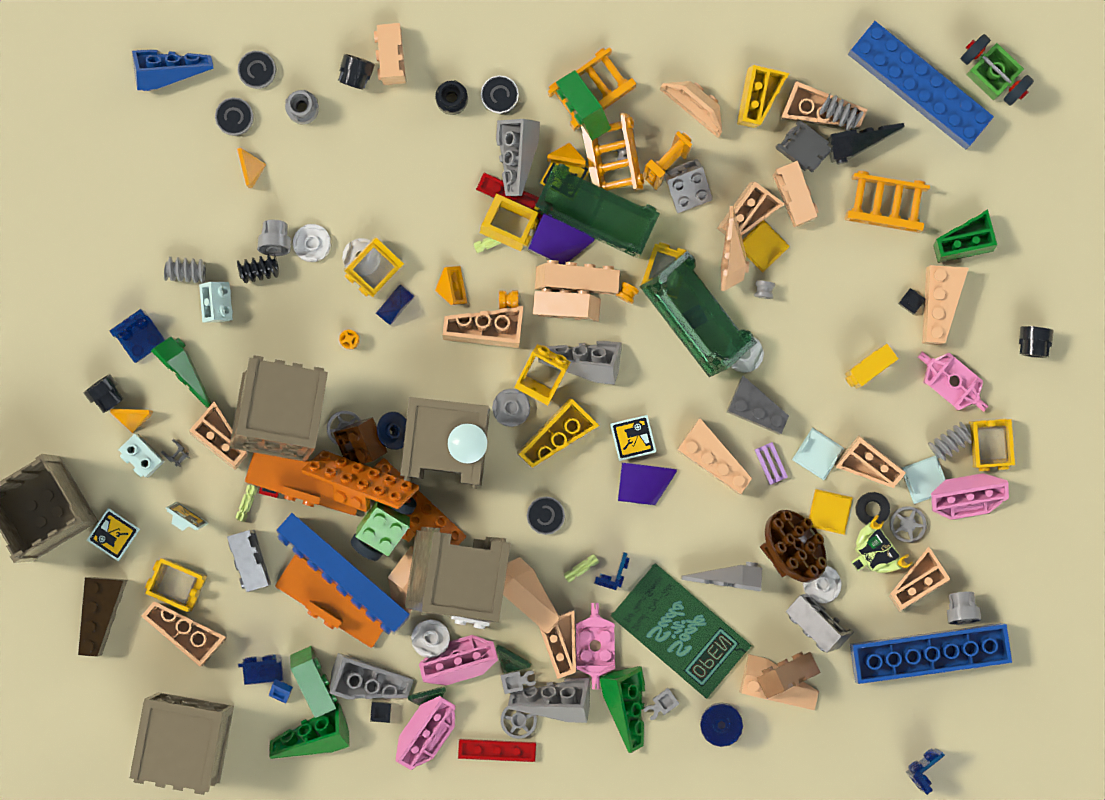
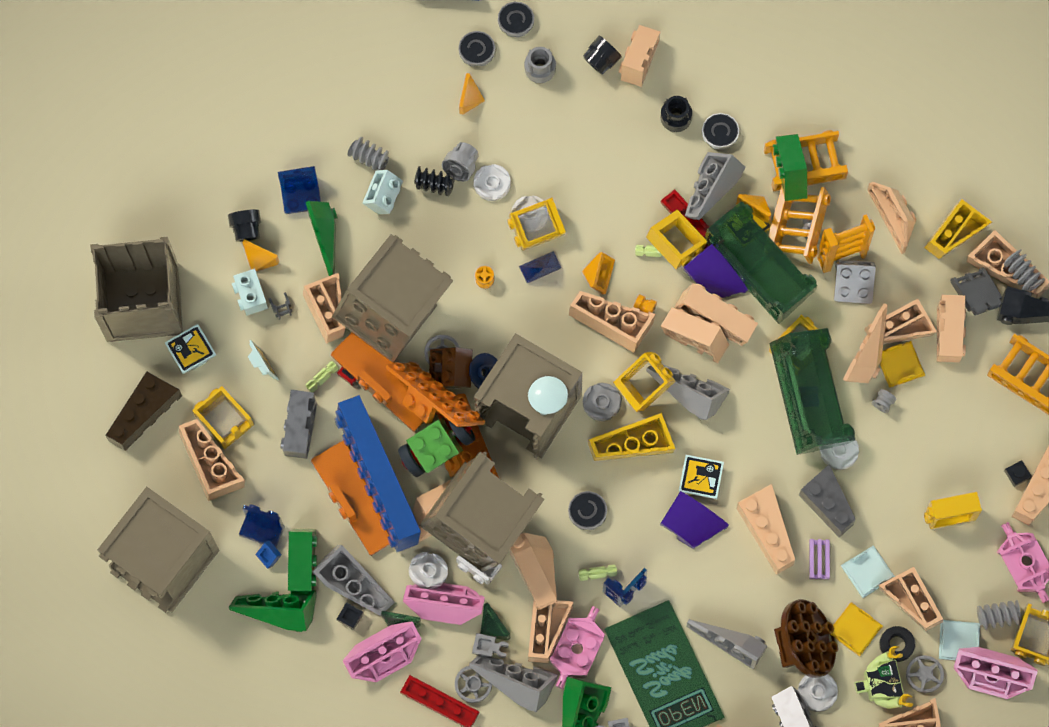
camera: 30 degrees right, 15 degrees down
(627, 292) = (755, 348): light orange wheel -> none

